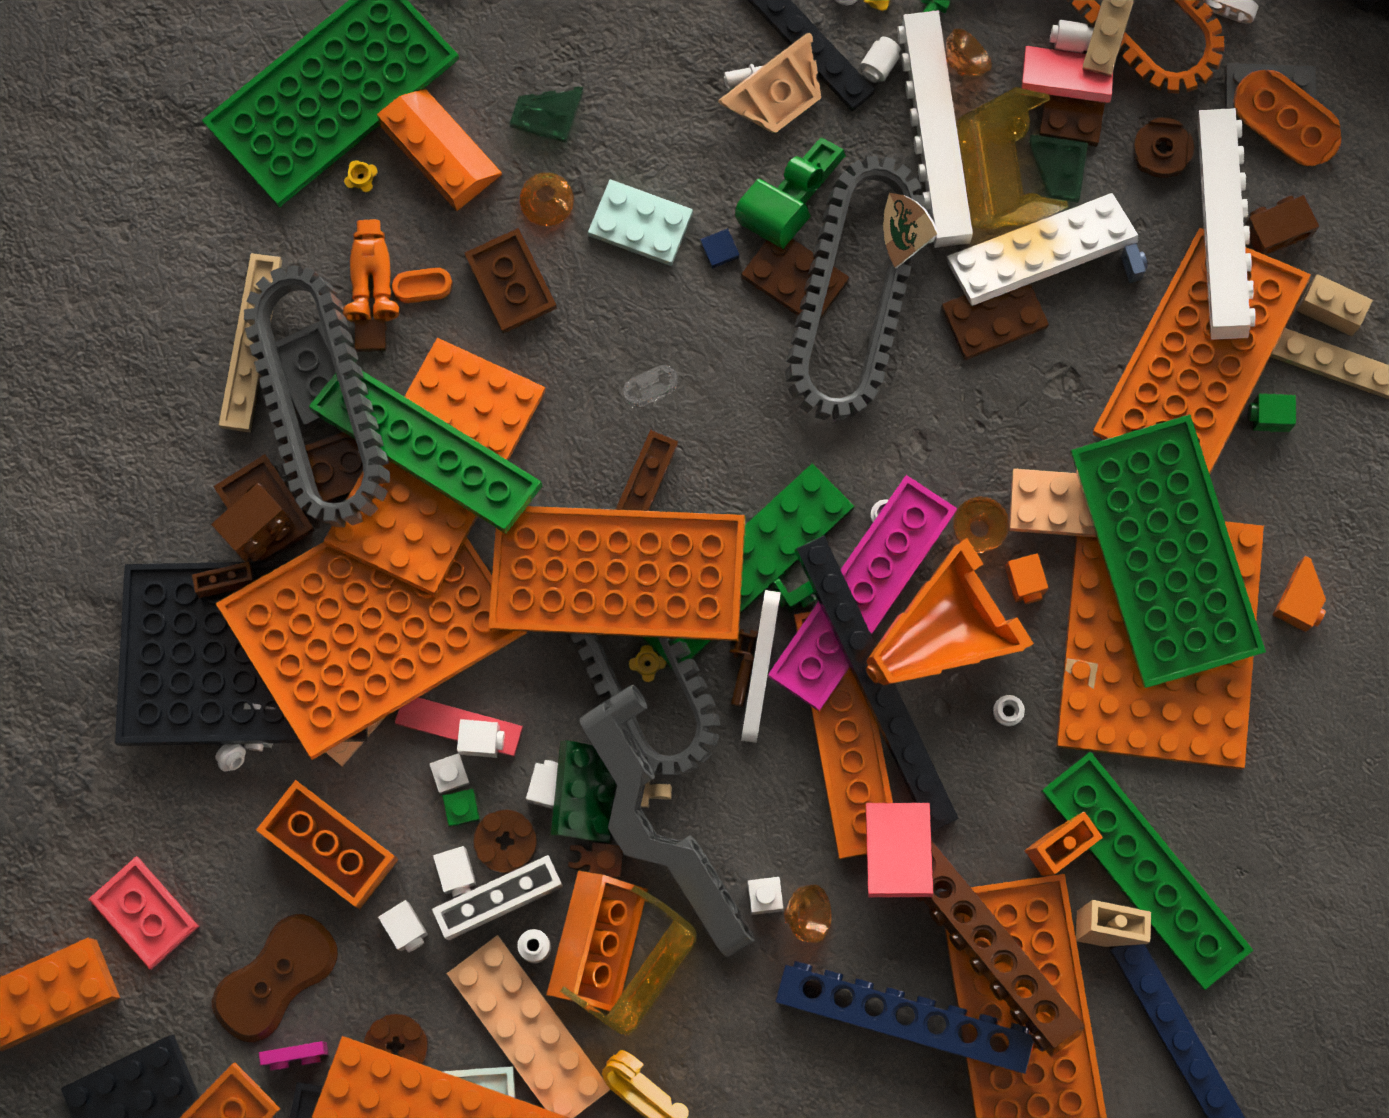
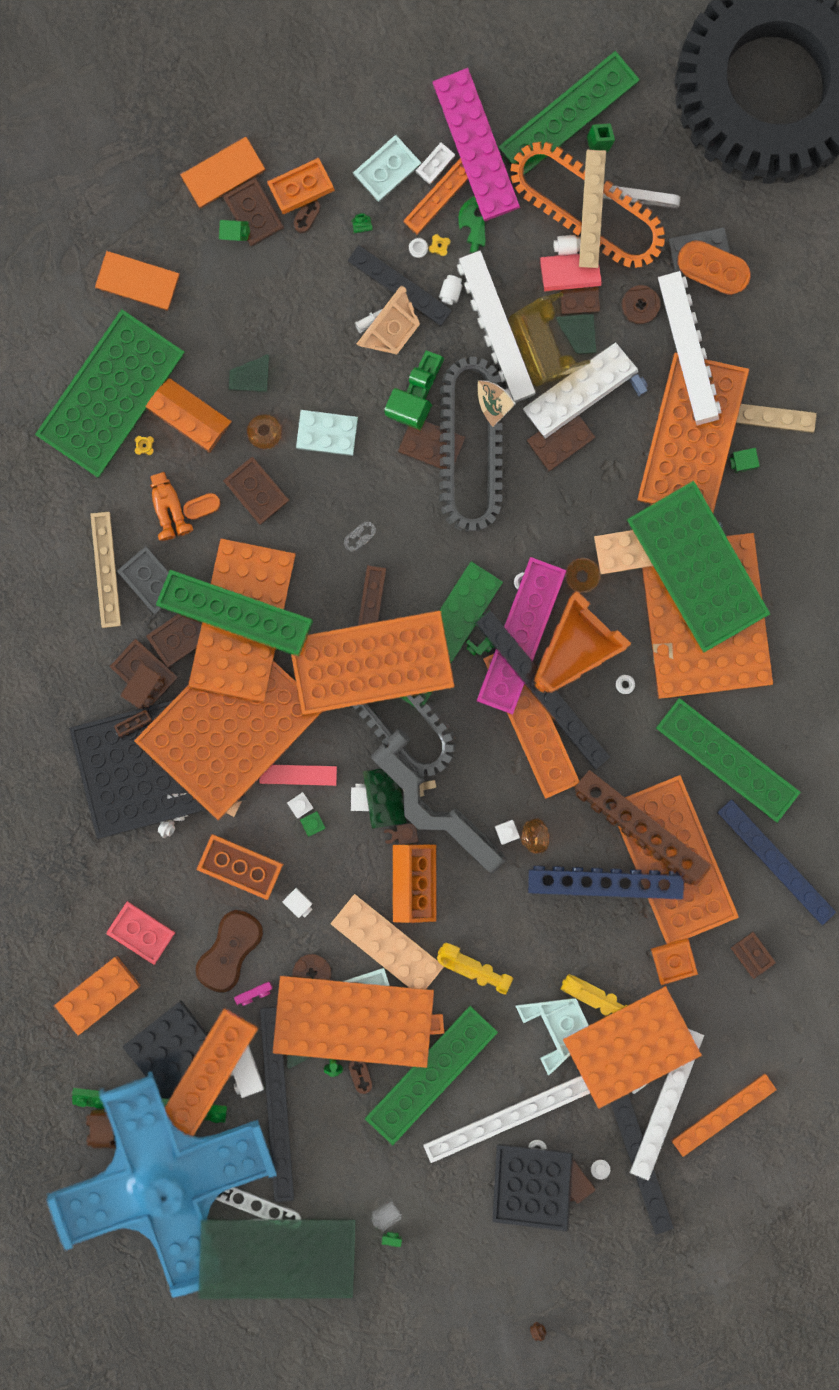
camera: 20 degrees left, 10 degrees up
(283, 411) = (138, 605): dark grey piece -> none
(370, 335) = (178, 546): reddish brown tile -> none
(455, 871) = (320, 863): white brick -> none
(480, 738) = (314, 781): white brick -> none
(497, 898) = (349, 873): white brick -> none
(519, 830) = (335, 830): reddish brown plate -> none
(543, 950) = (373, 891): white brick -> none
(647, 654) = (402, 714): yellow plate -> none
(652, 976) = (451, 898): clear yellow windscreen -> none
(719, 248) = (380, 437): dark blue tile -> none
(745, 666) = (461, 696): reddish brown piece -> none
(760, 666) = (470, 695): white beam -> none
(899, 850) = (579, 787): coral tile -> none
(966, 54) = (505, 273): clear orange piece -> none
(1027, 579) = (618, 601): orange brick -> none
(1063, 844) = (675, 758): orange slope -> none
(1112, 925) = (715, 798): tan slope -> none
(1281, 225) = (724, 338): reddish brown brick -> none
(1302, 598) = (786, 572): orange slope -> none
(1334, 305) = (768, 382): tan brick -> none

